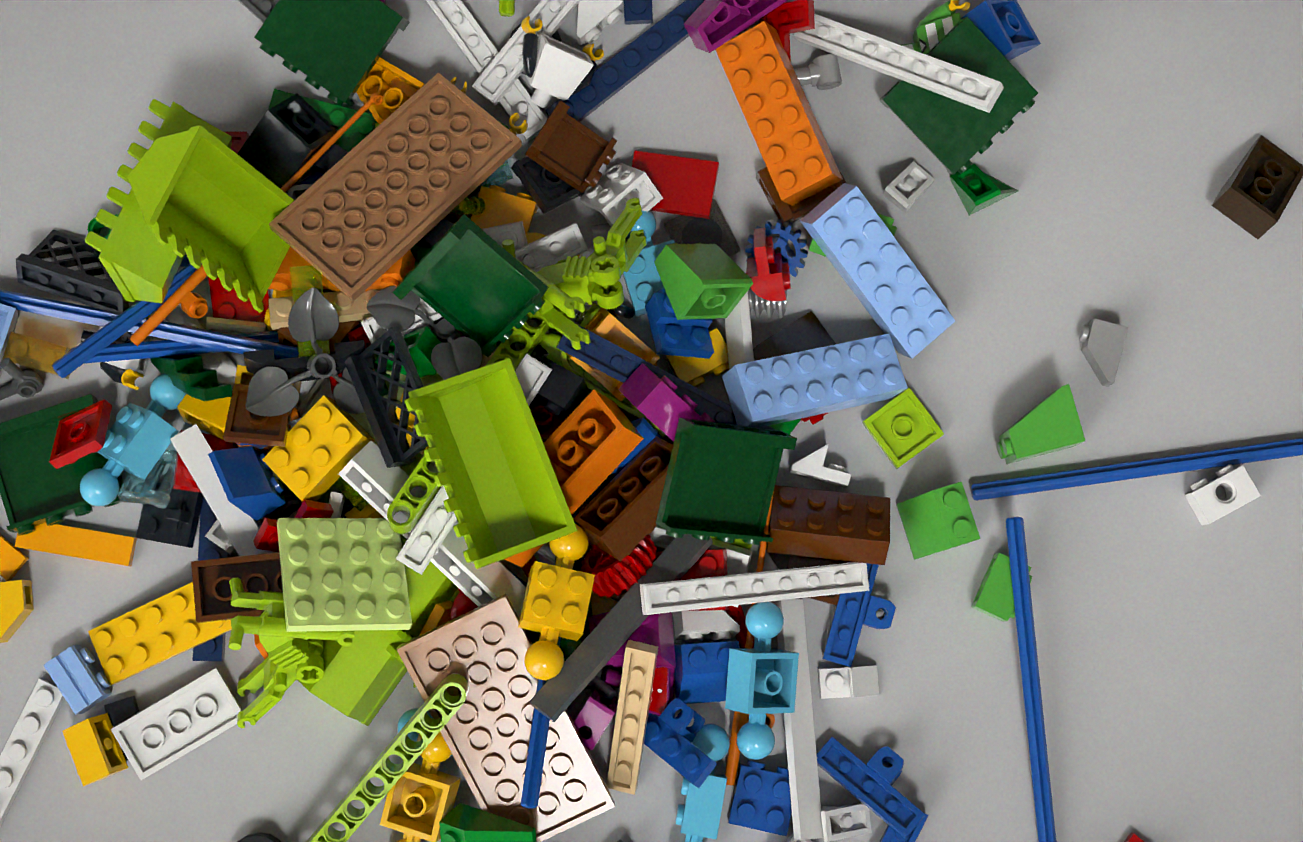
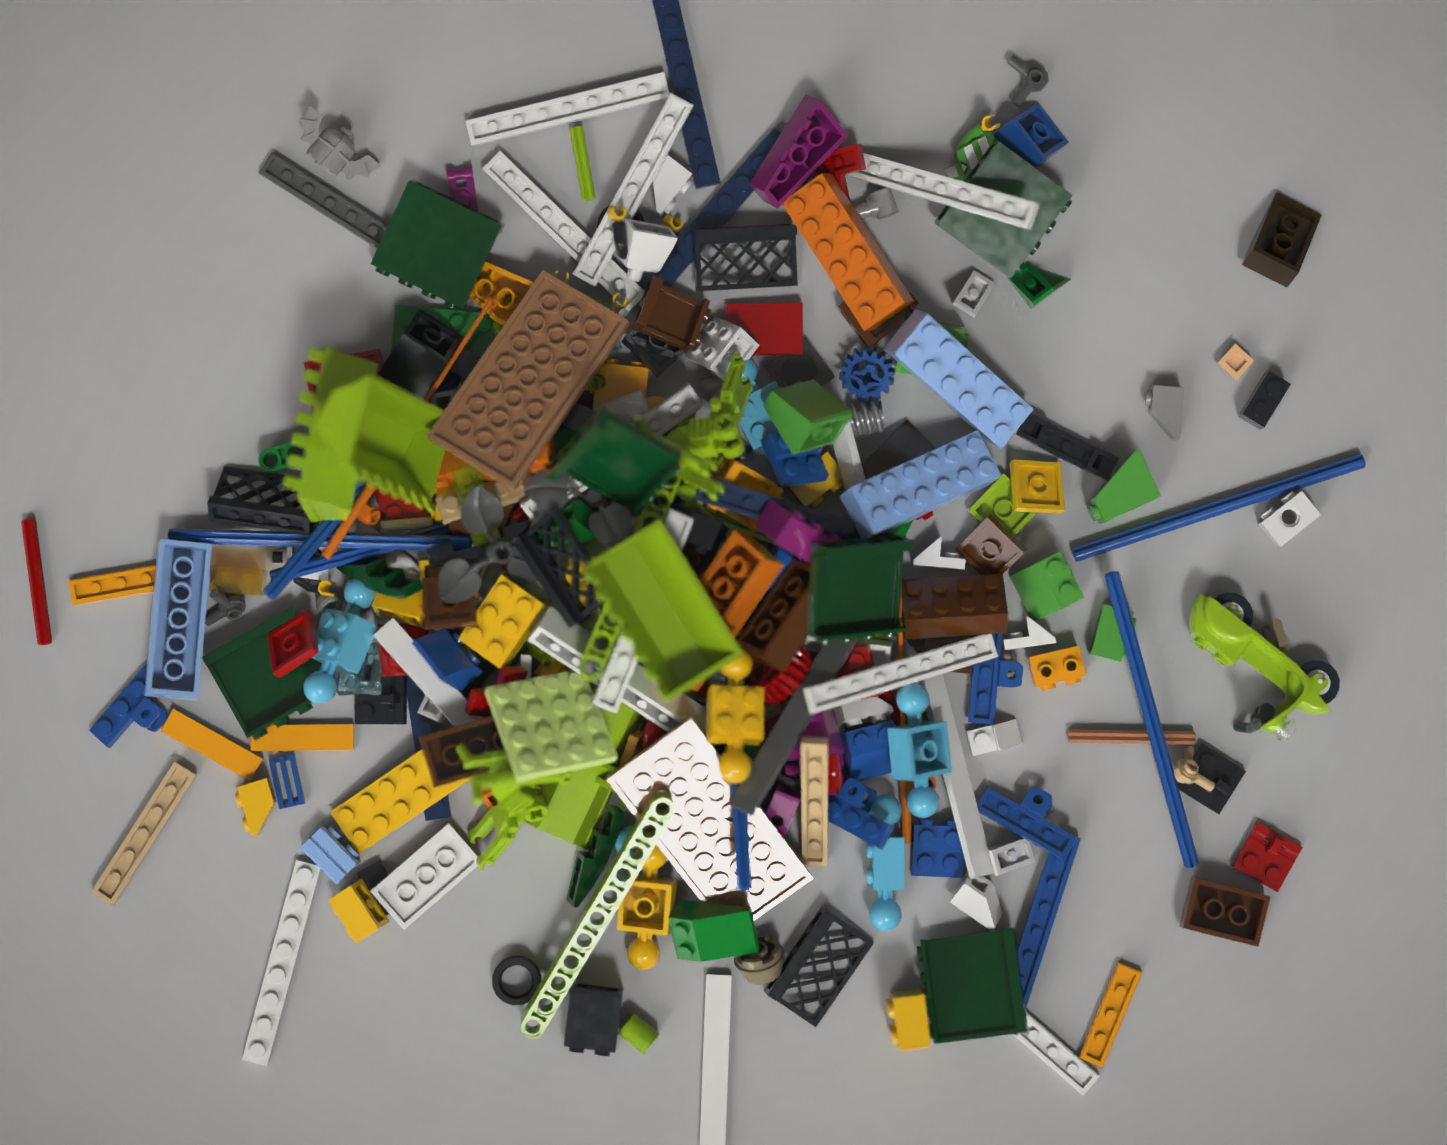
camera: 15 degrees left, 5 degrees up
(37, 588) = (277, 785): none -> blue tile
(138, 397) = (329, 602): none -> light grey tile
(368, 742) = (591, 863): none -> dark green slope
(671, 77) = (741, 234): none -> black fence
(767, 269) = (863, 395): red brick -> none
(881, 467) = (990, 547): none -> reddish brown plate
(915, 575) = (1035, 636): none -> white slope
(933, 614) = (1056, 667): none -> light orange brick
(945, 408) = (1037, 486): none -> yellow plate
(985, 372) = (1067, 447): none -> black slope
(1000, 708) = (1128, 736): none -> nougat axle
(1064, 759) = (1187, 771): none -> tan piece
(1086, 773) = (1219, 770): none -> black hinge
(1132, 607) = (1225, 631): none -> lime piece
(1188, 310) = (1235, 361): none -> light nougat plate
(1214, 358) = (1264, 400): none -> black brick

